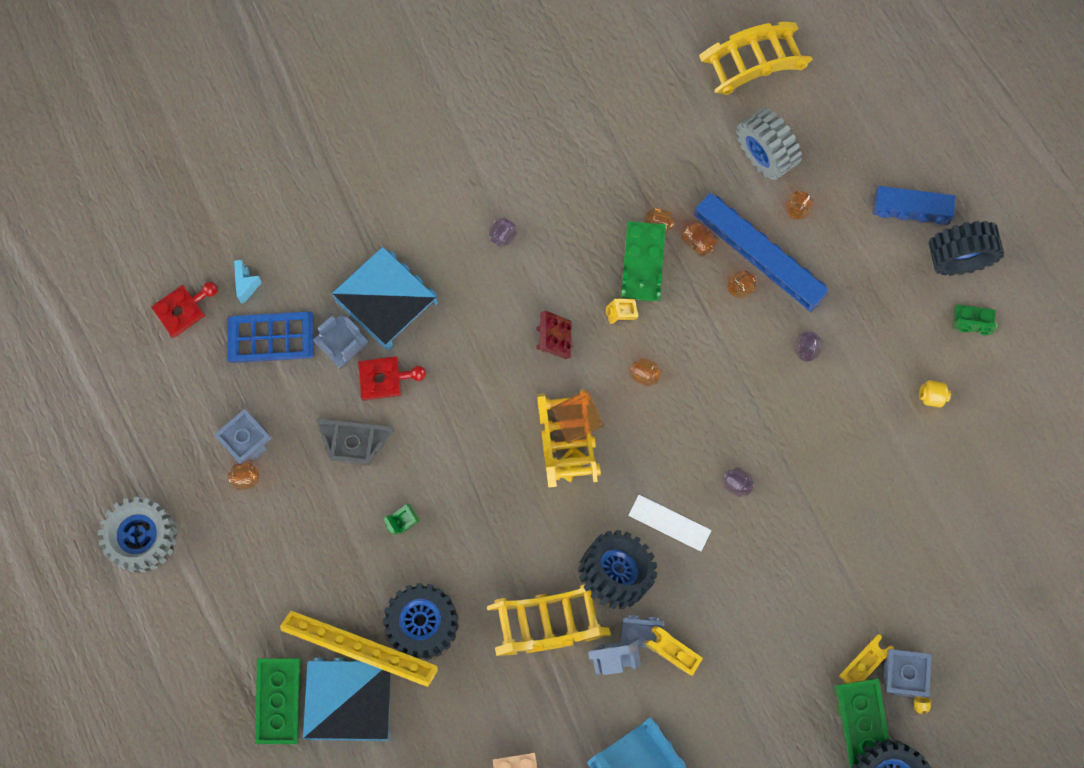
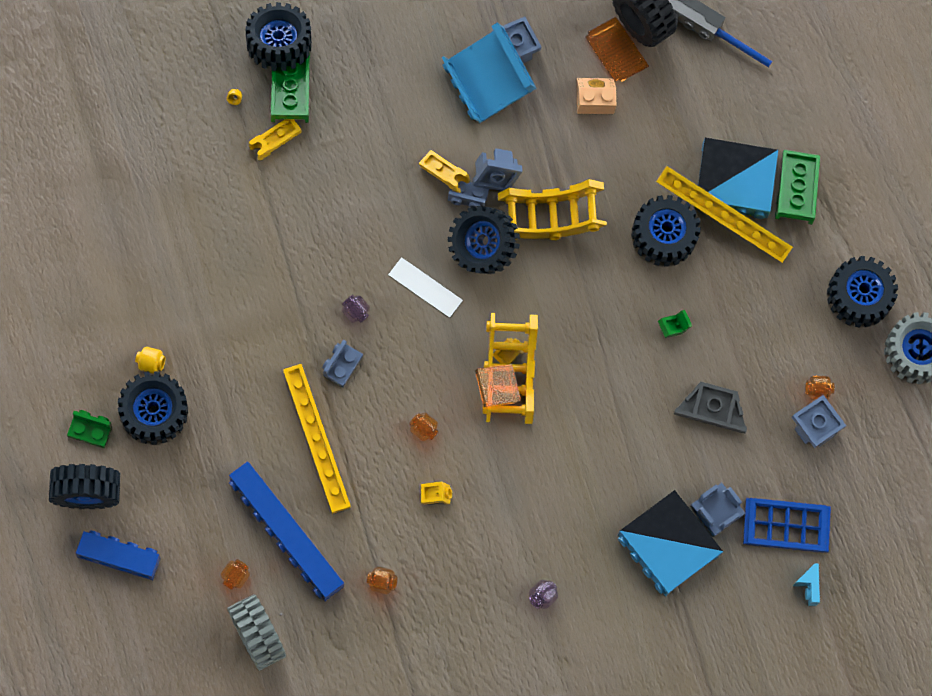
camera: 175 degrees right, 0 degrees up
(191, 312) = (864, 564): red plate -> none
(219, 601) = (859, 311): none -> black wheel
(391, 385) = (671, 472): red plate -> none
(555, 335) = (506, 474): dark red plate -> none
(643, 261) = (406, 537): green hinge -> none
(699, 238) = (343, 552): clear orange wheel -> none
(739, 425) = (342, 363): none -> sand blue bracket
(742, 284) = (311, 500): clear orange head -> none
(750, 346) = (316, 438): none -> yellow plate
(808, 346) = (260, 426): clear purple head -> none
(907, 673) = (242, 119): sand blue panel -> none
(939, 353) = (149, 387): none -> black wheel

